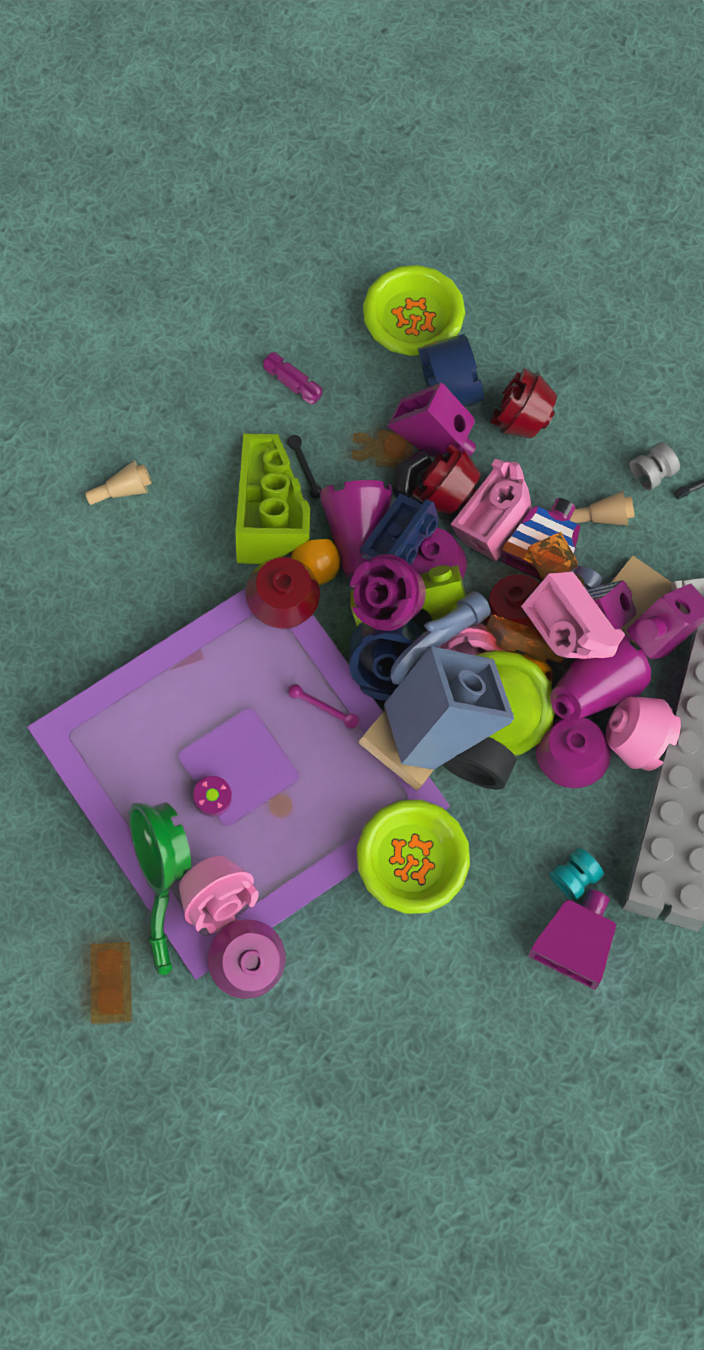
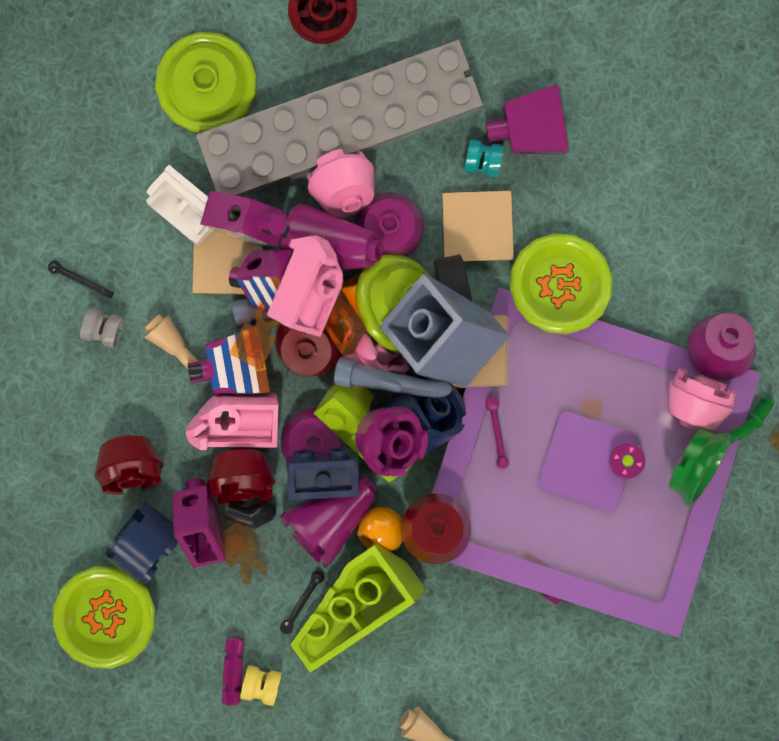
camera: 135 degrees left, 20 degrees up
(264, 386) = (252, 685): none -> light yellow wheel
(517, 829) = (478, 225): none -> tan tile

